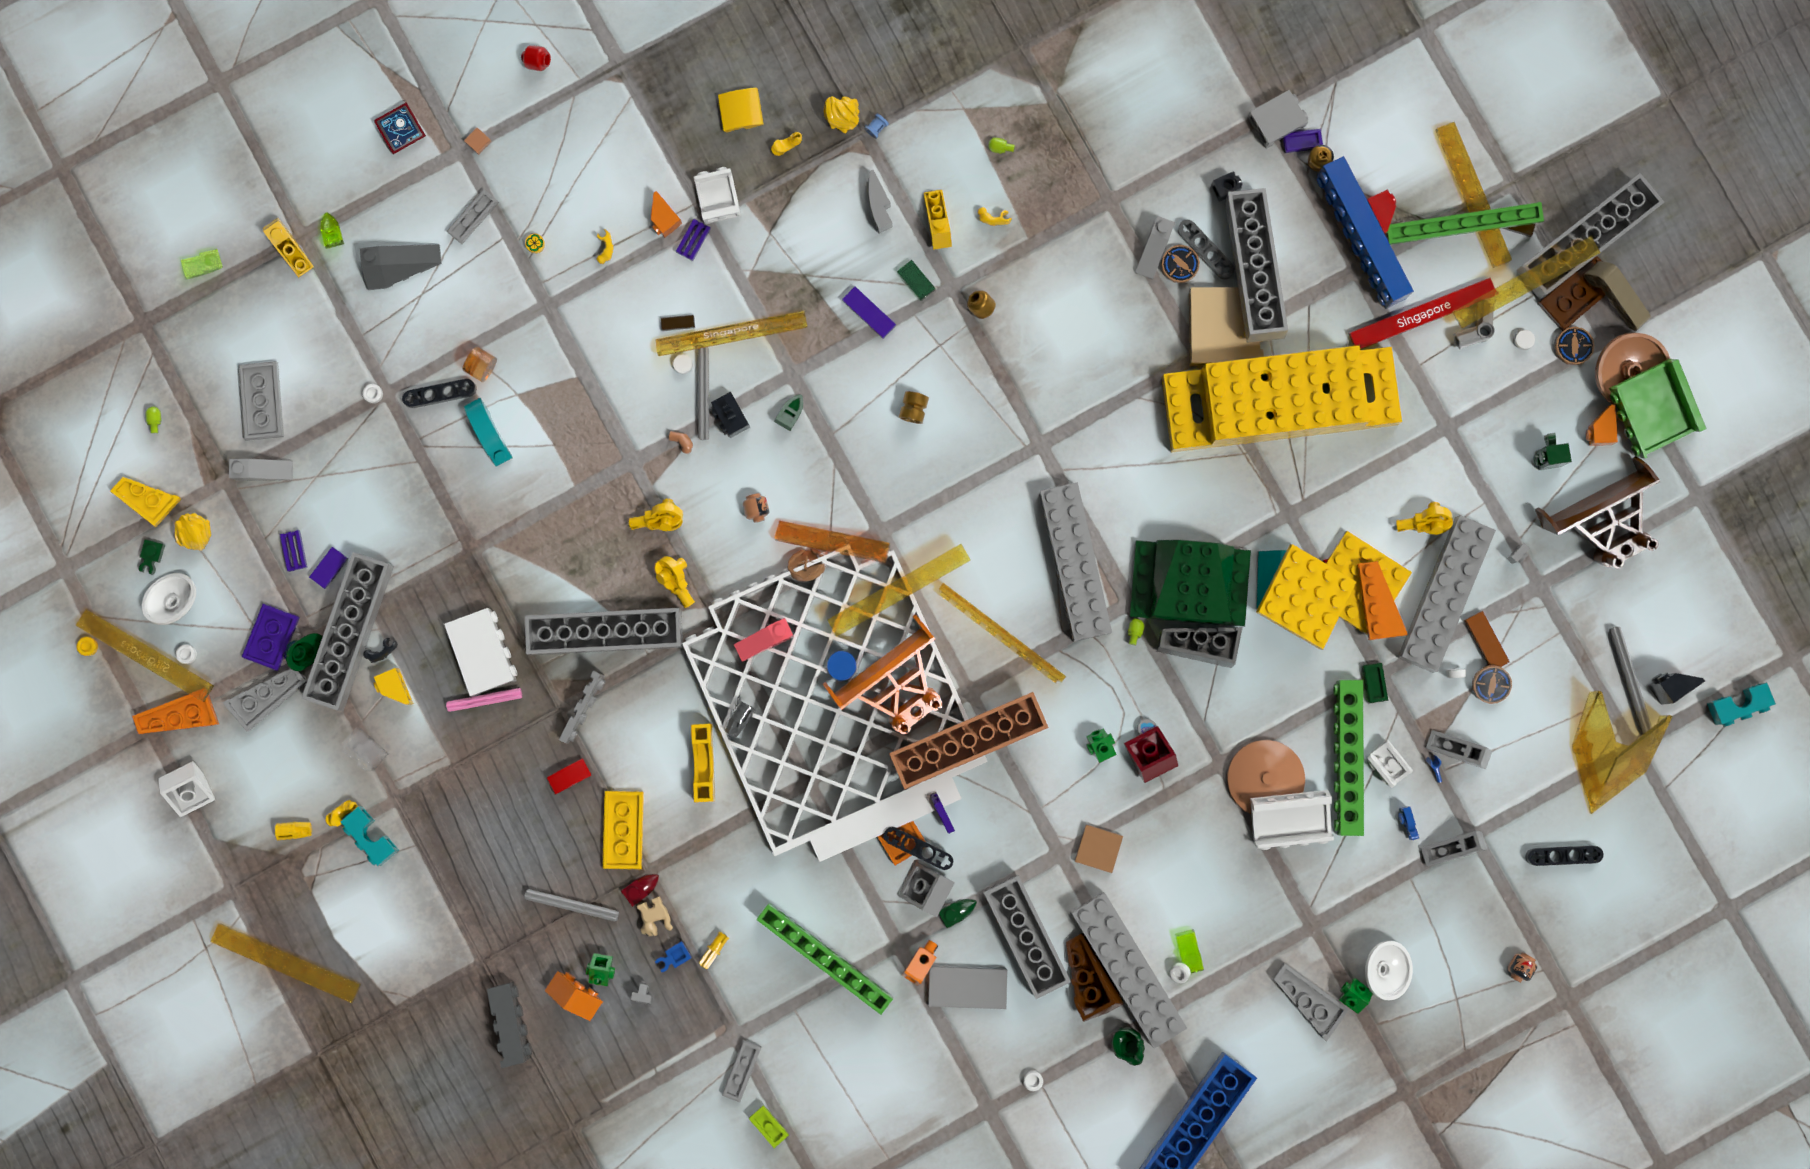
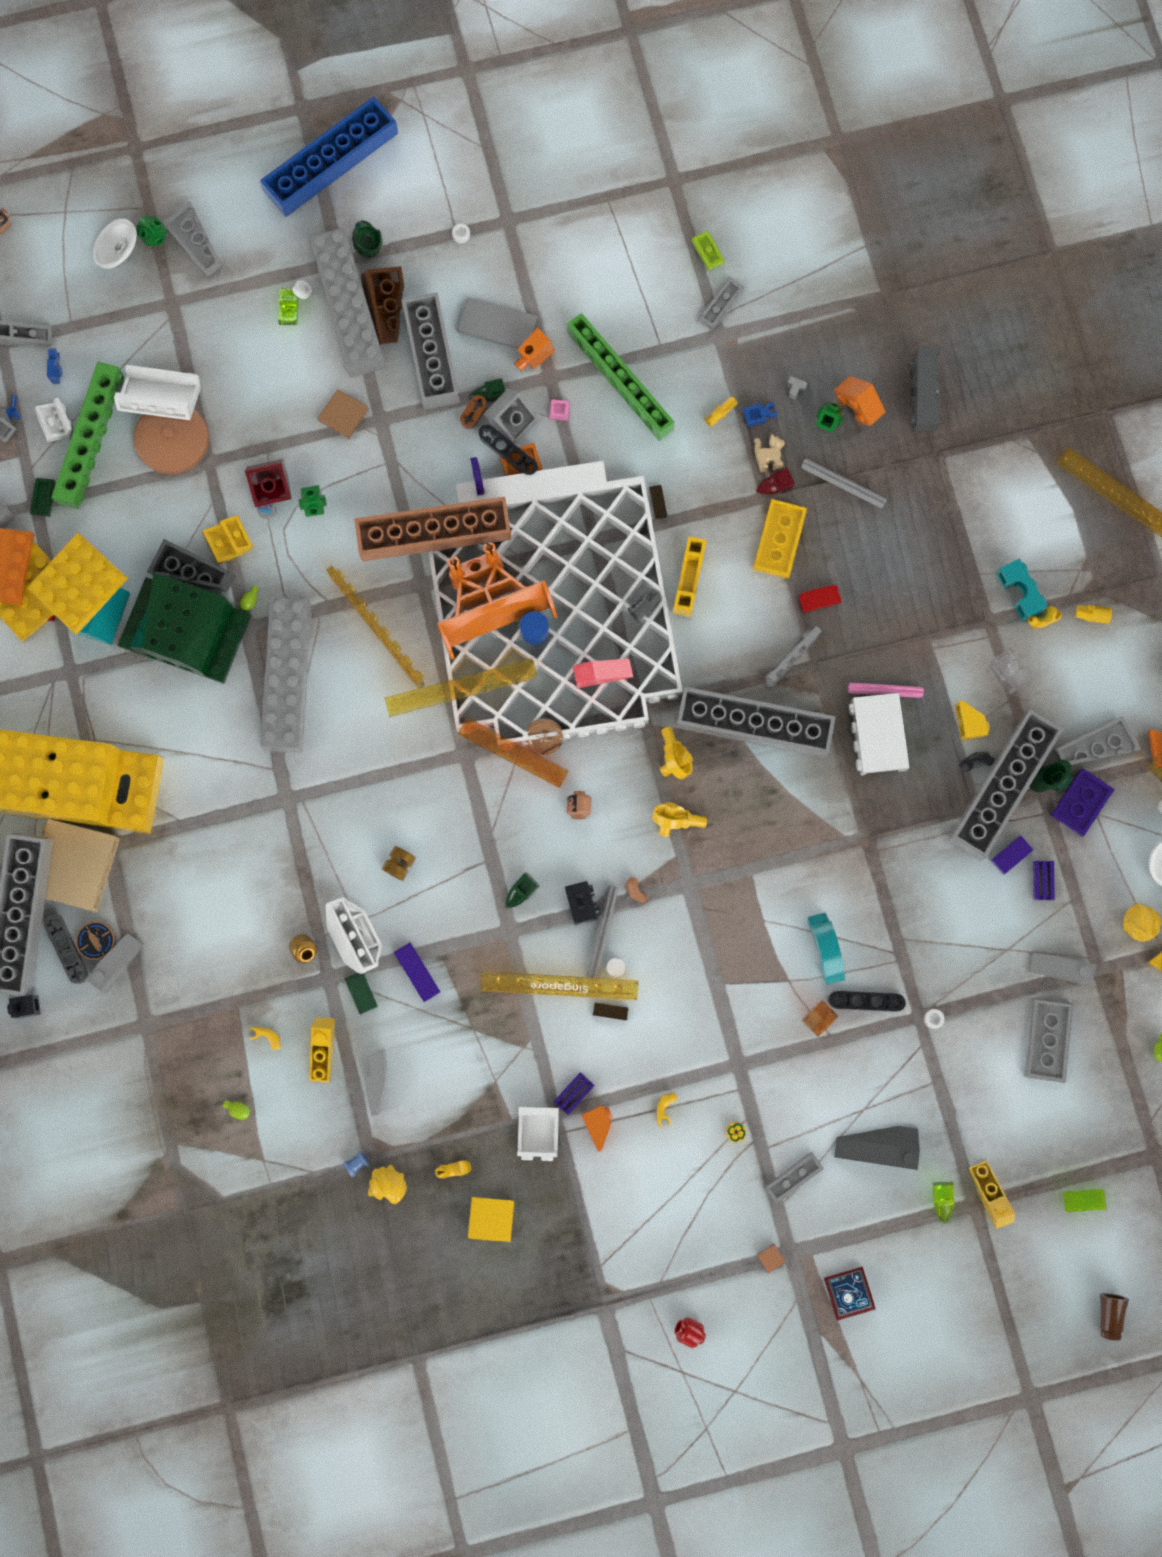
camera: 170 degrees left, 5 degrees down
(158, 169) = (1112, 1315): none -> reddish brown plant
(754, 837) = (658, 501): none -> dark brown piece
(879, 910) = (559, 410): none -> bright pink tile
(936, 328) = (353, 935): none -> white wedge
(970, 885) = (470, 410): none -> dark orange beam
(1176, 686) = (227, 540): none -> yellow slope

